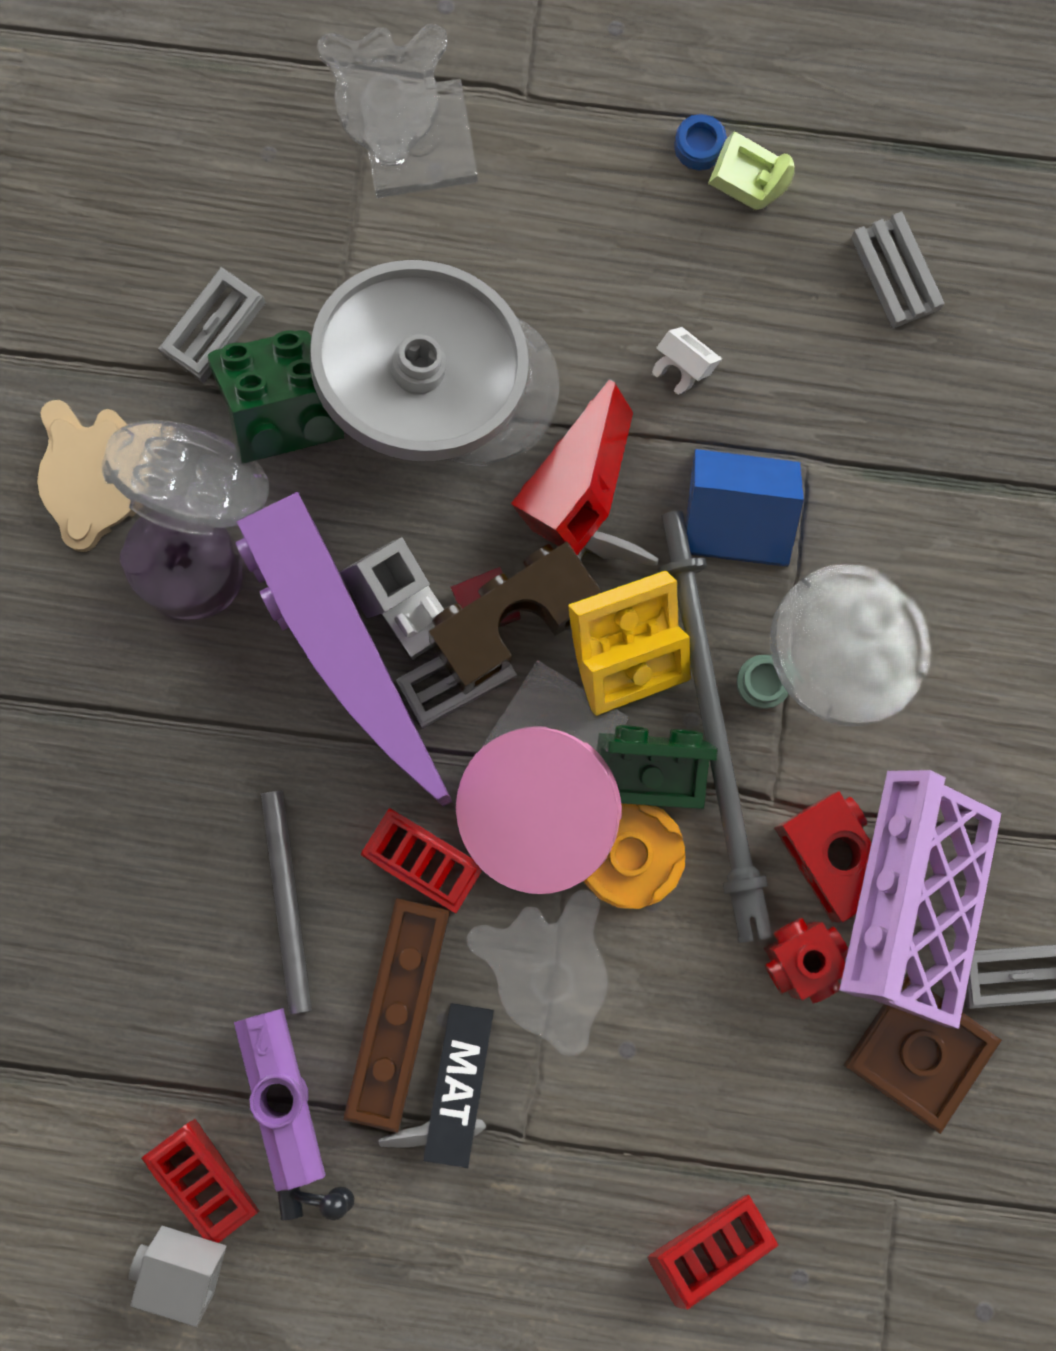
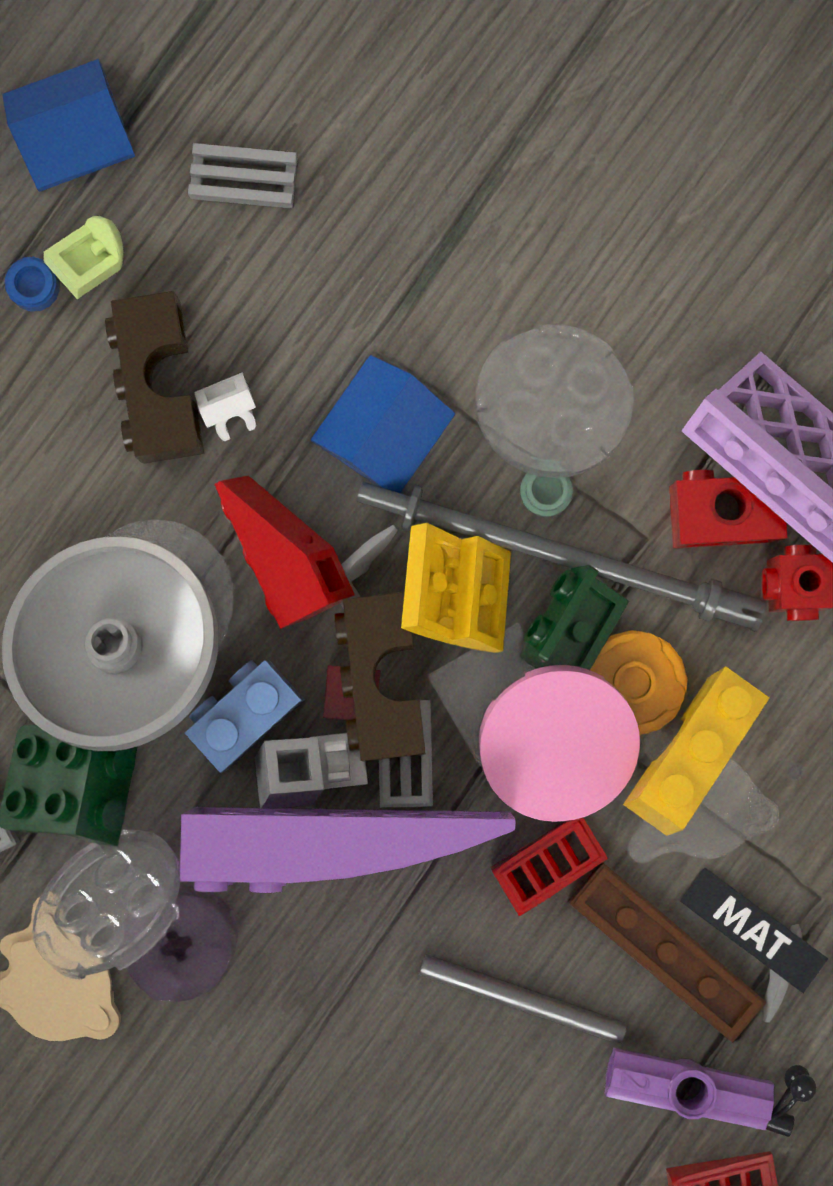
camera: 60 degrees left, 5 degrees up
(424, 516) = (244, 716): none -> medium blue brick
(598, 940) = (698, 753): none -> yellow arch
(708, 255) = (145, 333): none -> dark brown arch
(855, 100) = (67, 125): none -> blue slope

